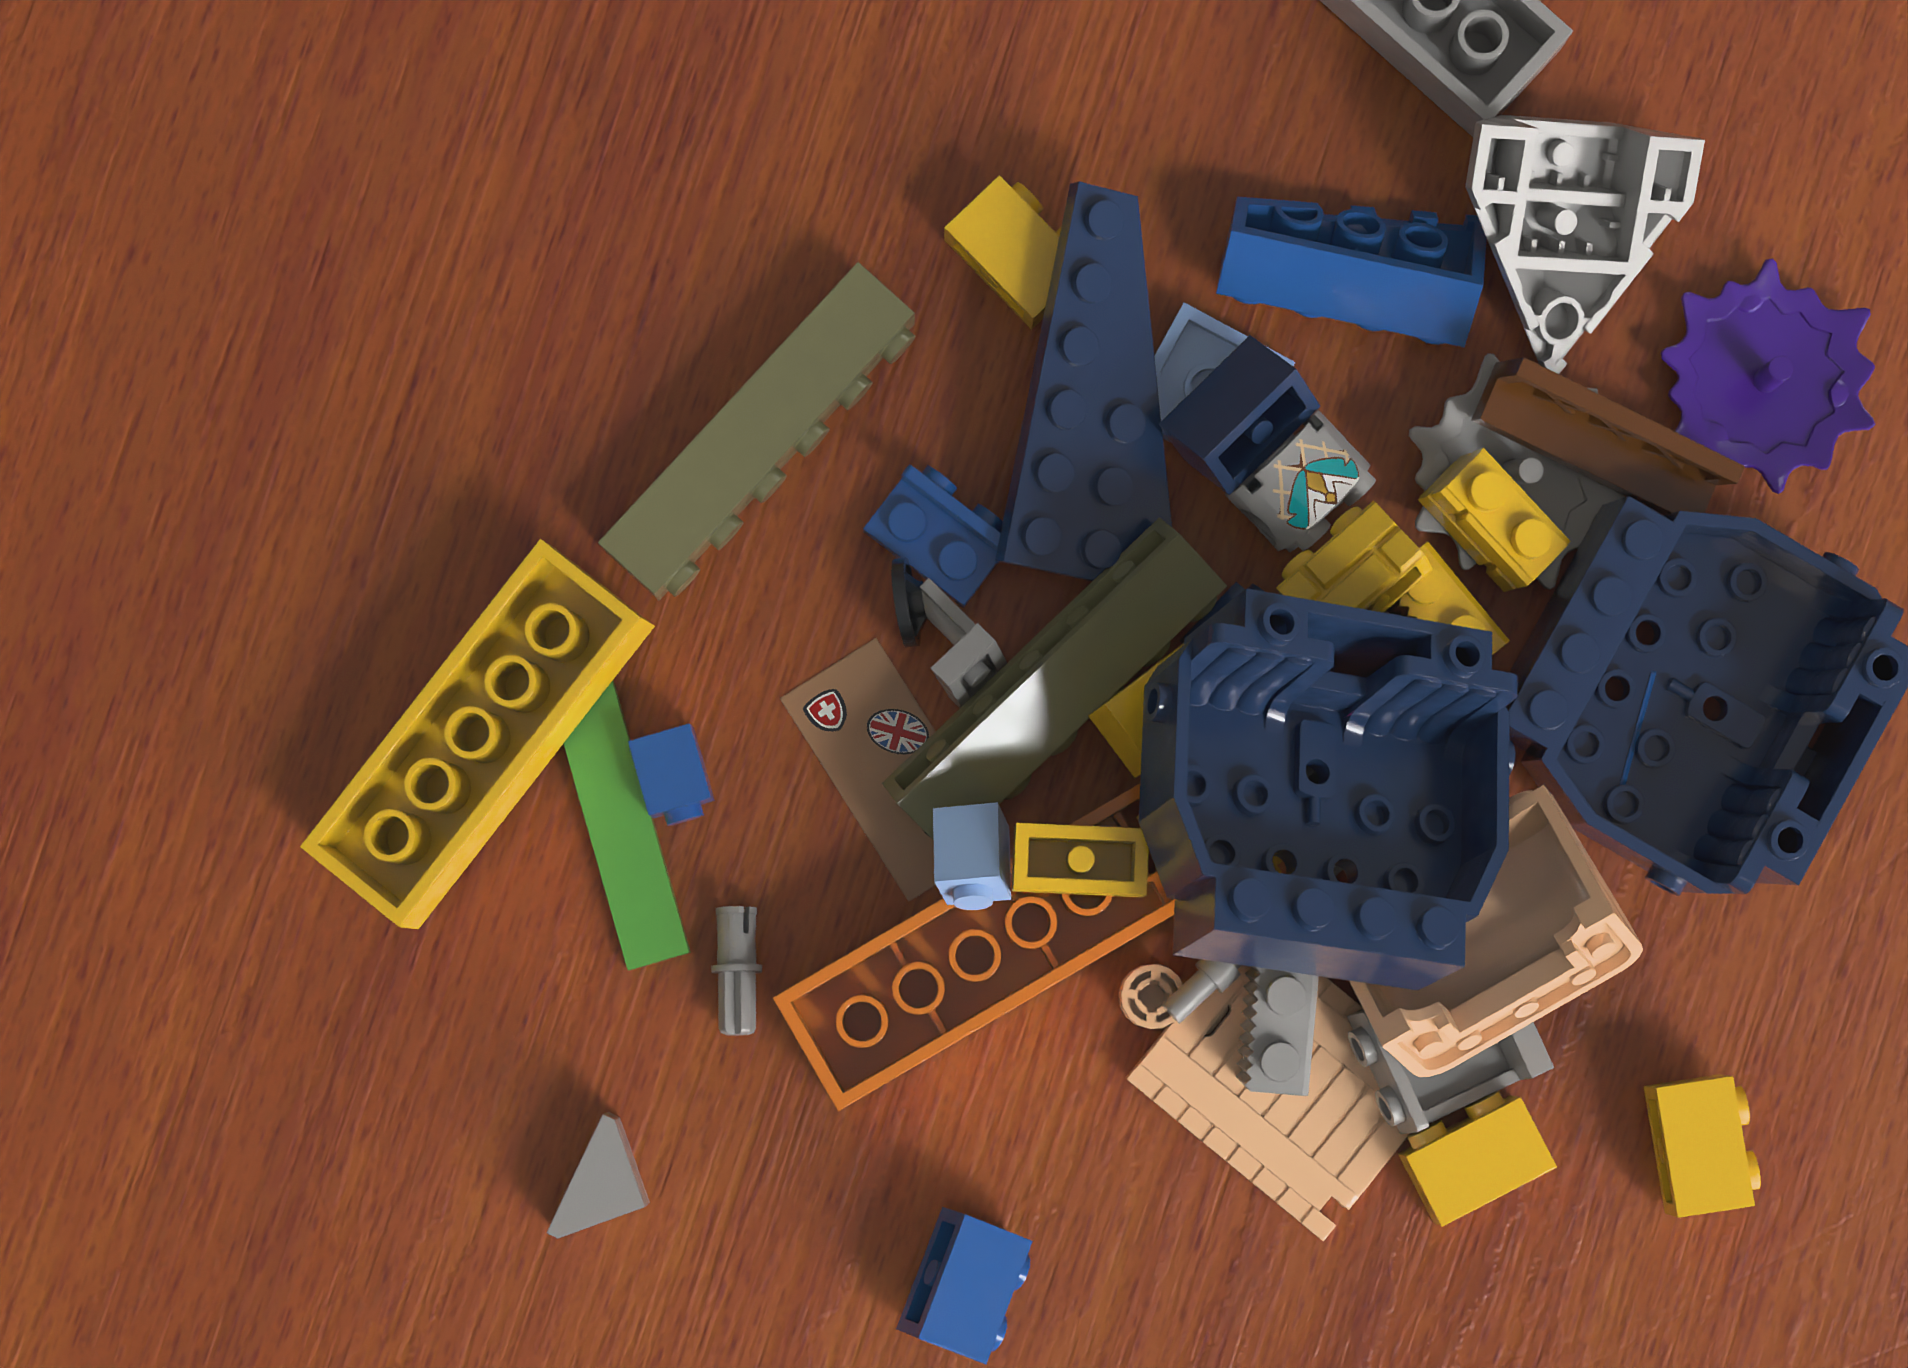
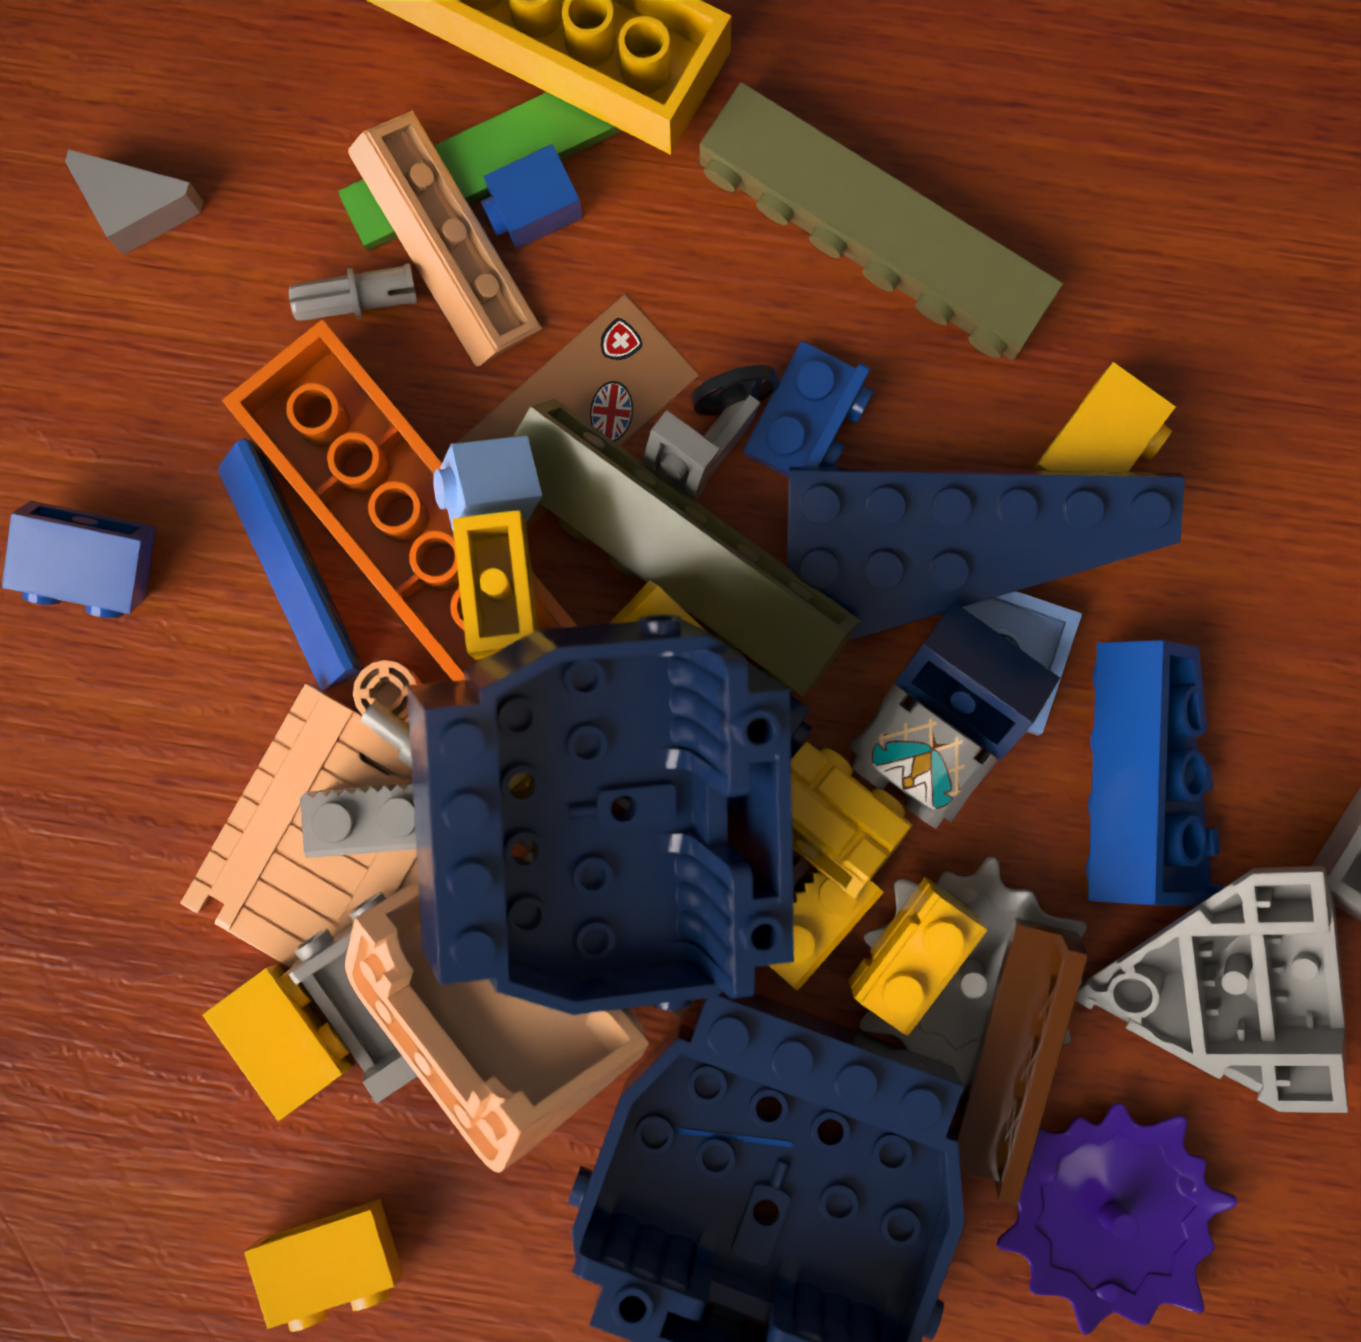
camera: 90 degrees right, 0 degrees up
(698, 869) = (443, 237): none -> light nougat slope
(1004, 1080) = (289, 565): none -> blue slope

